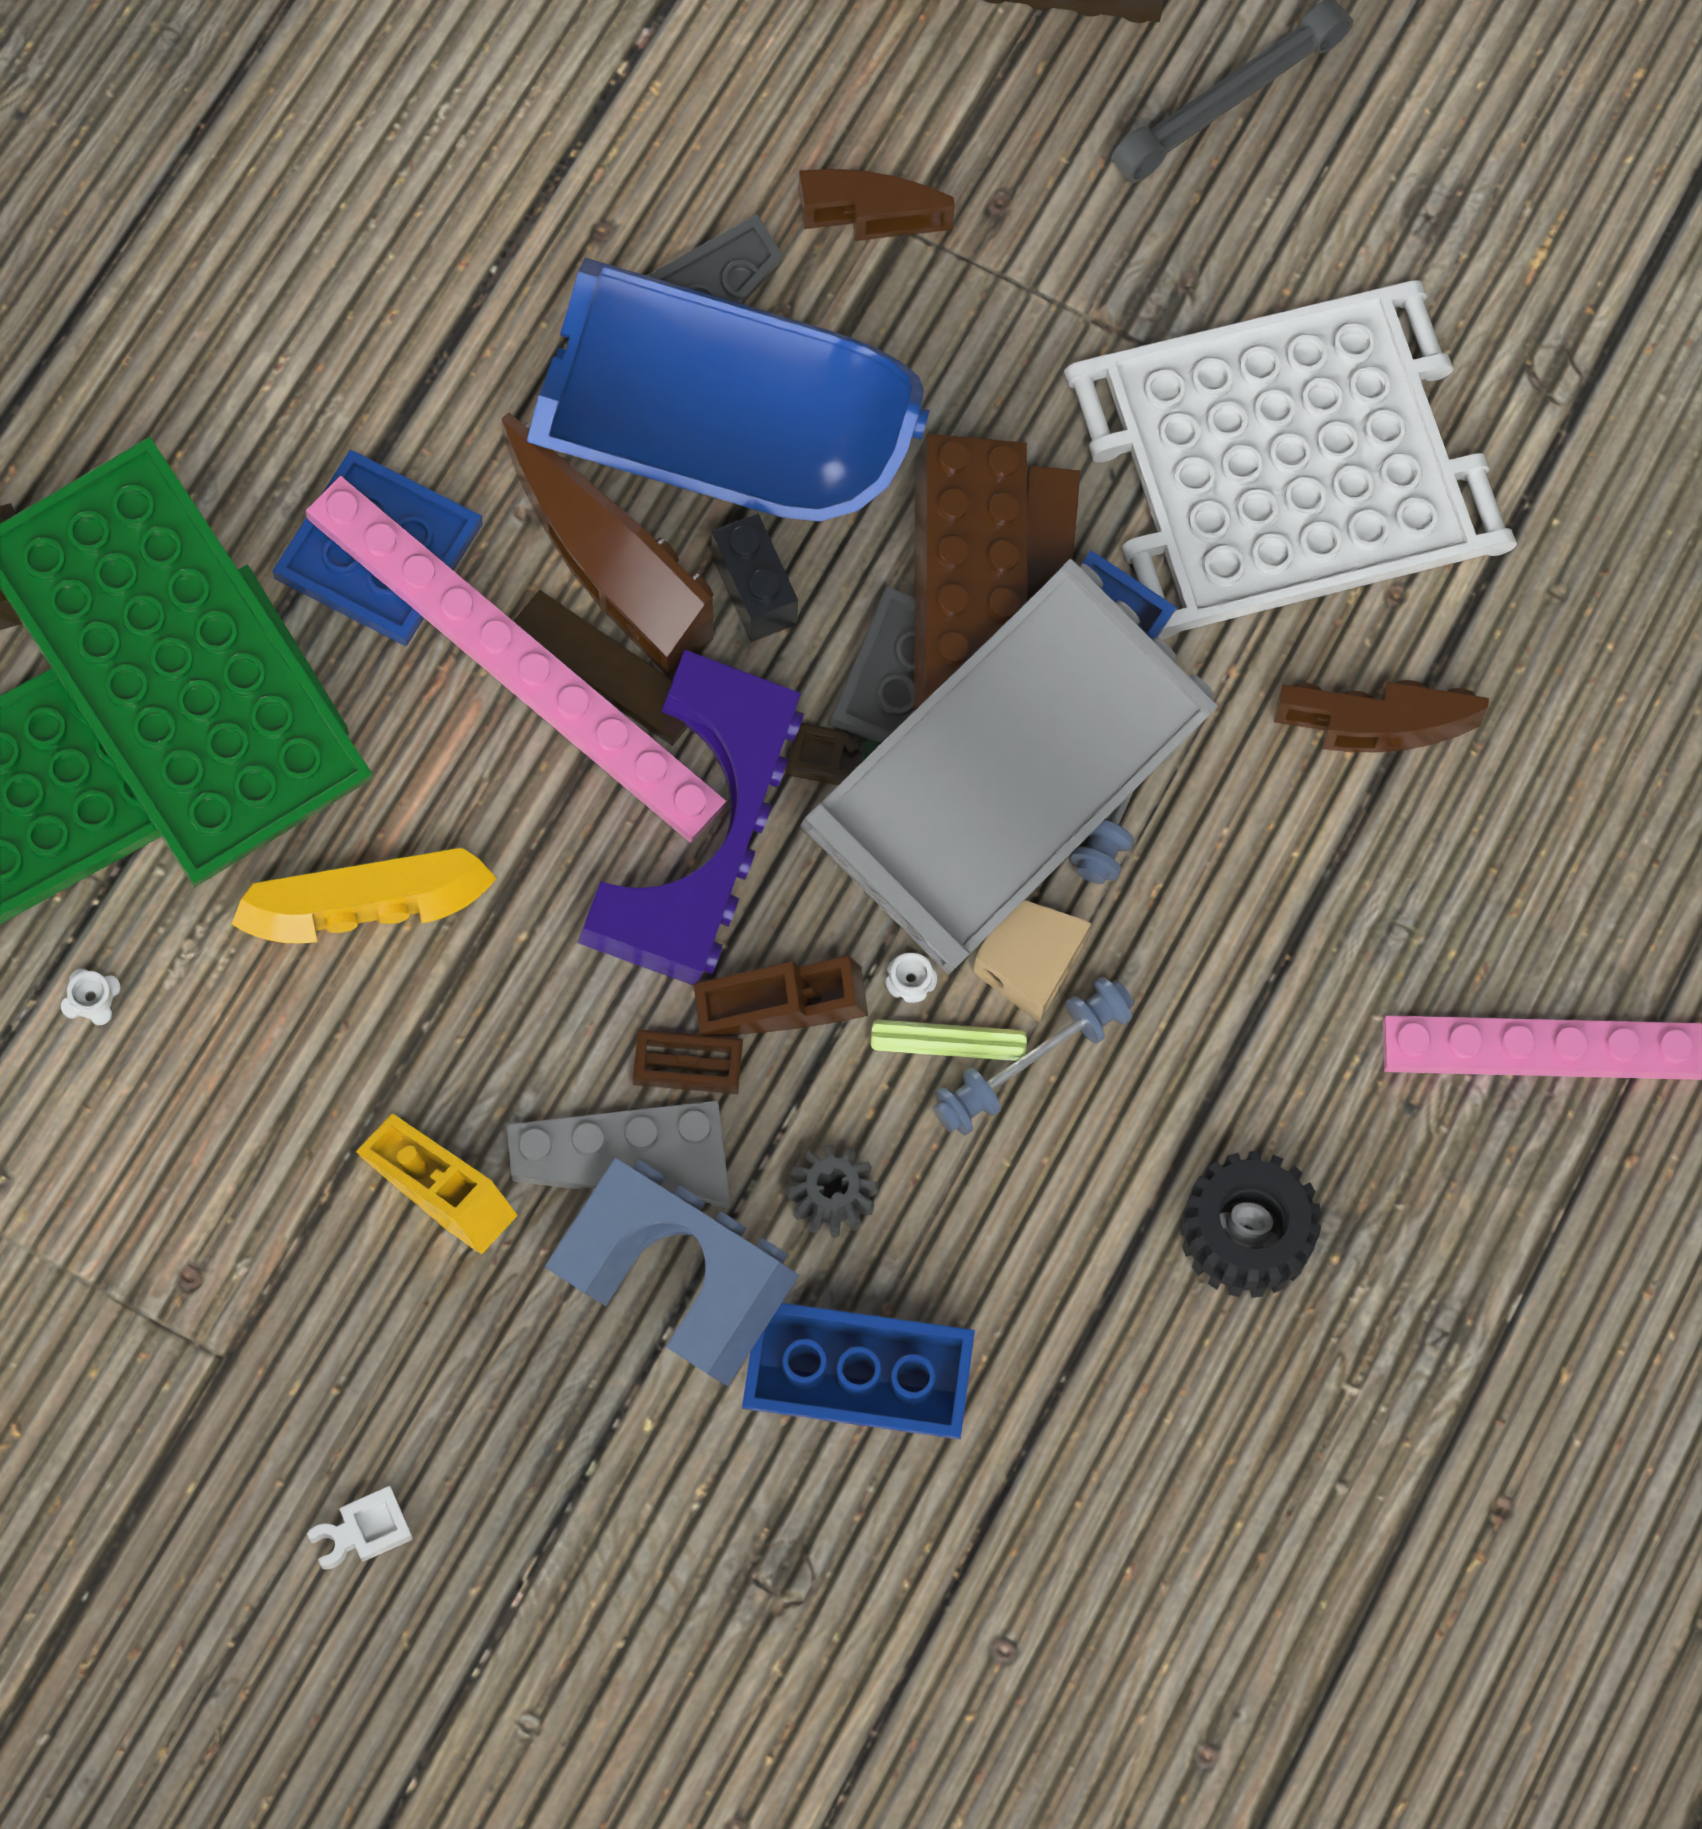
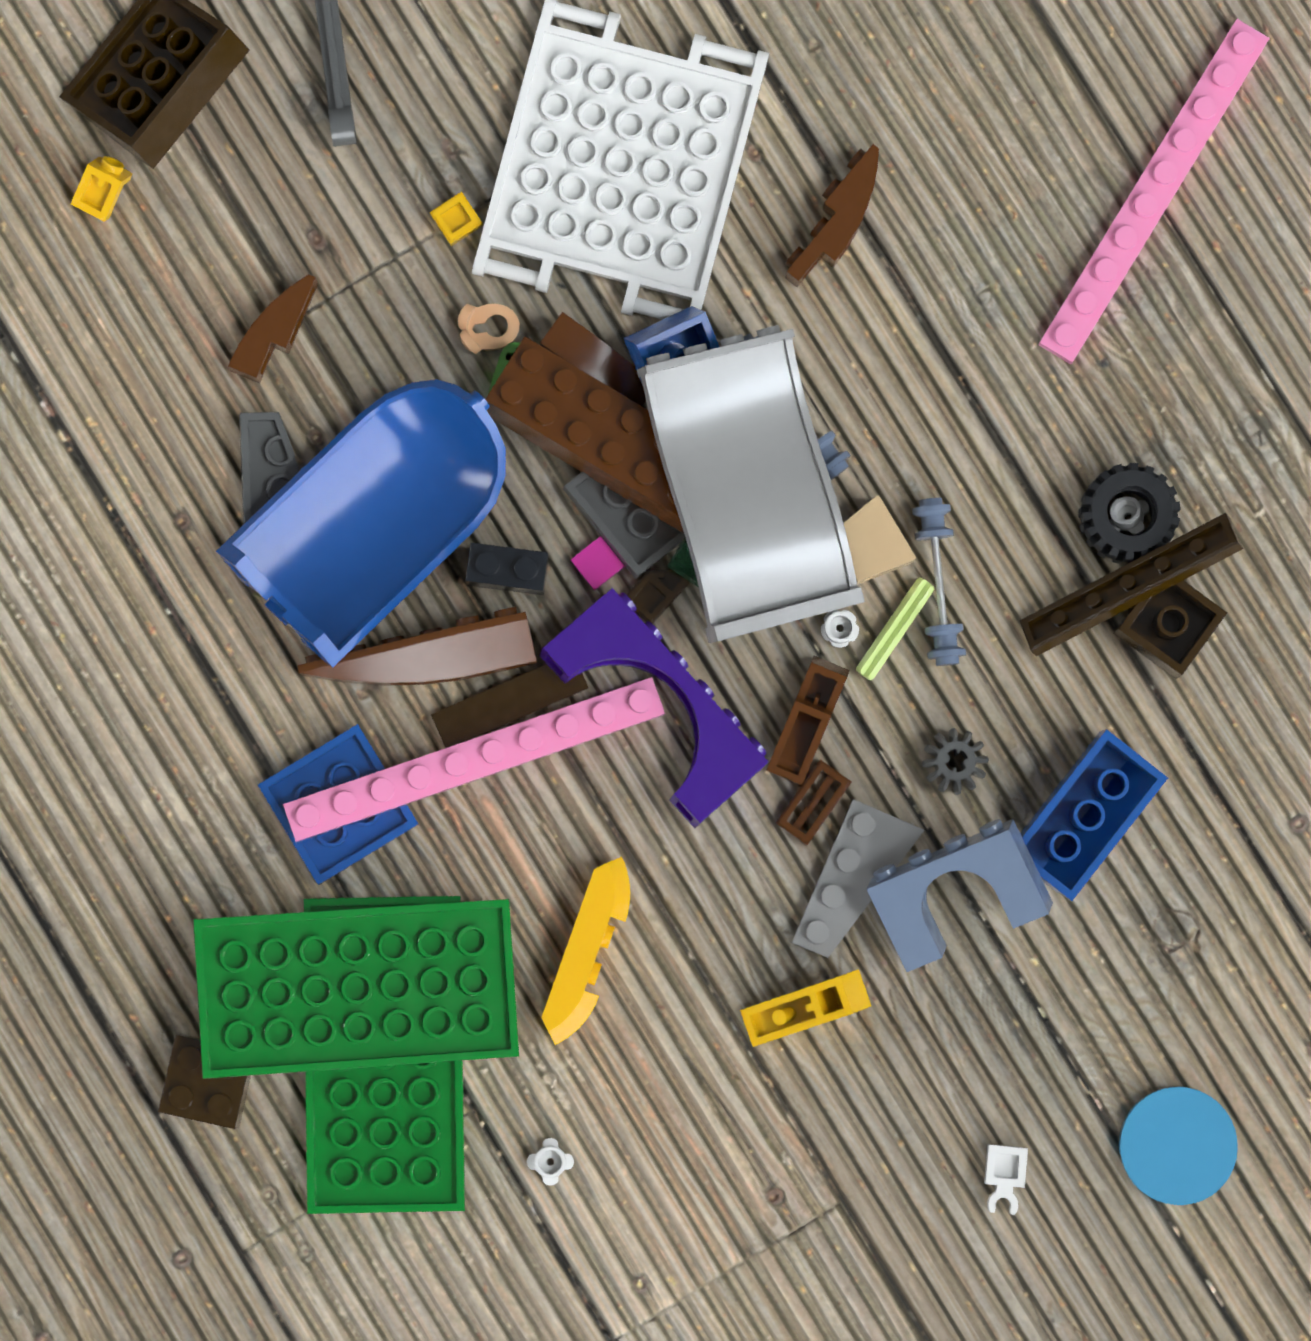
camera: 60 degrees left, 15 degrees up
(518, 1723) = (1178, 1145): none -> dark azure tile
(821, 675) = (597, 563): none -> dark pink tile
(1014, 395) = (471, 316): none -> light nougat piece
(1114, 324) = (456, 218): none -> yellow tile
(1150, 1343) = (1171, 627): none -> dark brown brick
(1167, 1264) = (1131, 584): none -> dark brown tile

